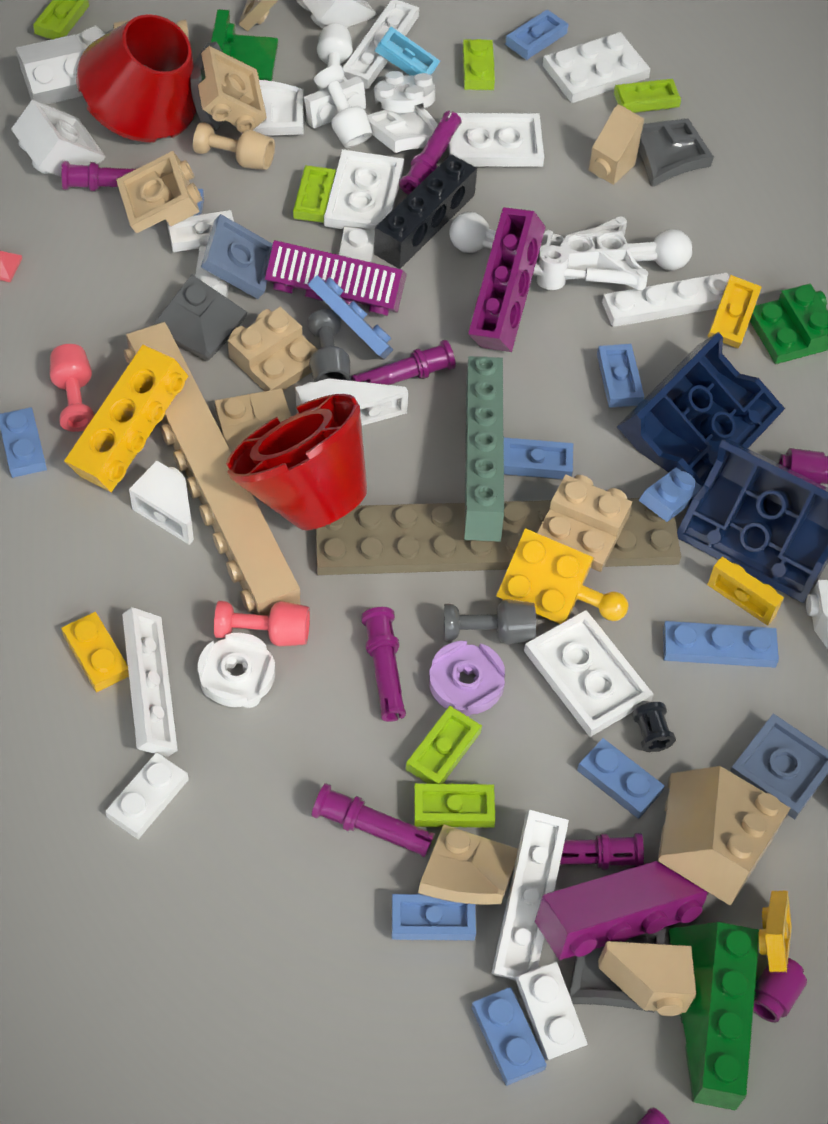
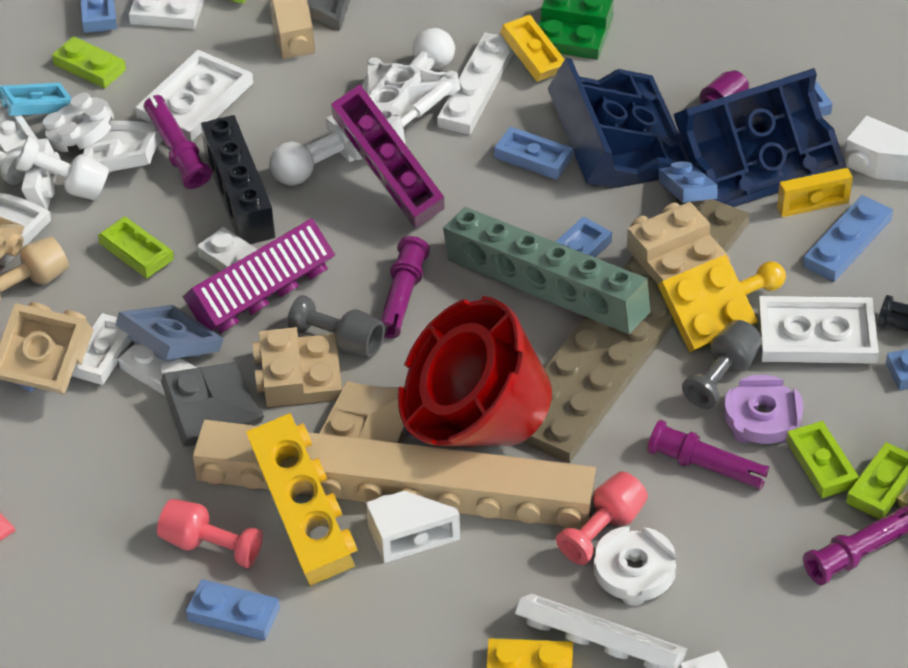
camera: 50 degrees left, 10 degrees down
(352, 315) = (320, 284): medium blue plate -> none
(363, 190) = (169, 210): white plate -> none
(375, 400) = (394, 344): white slope -> none

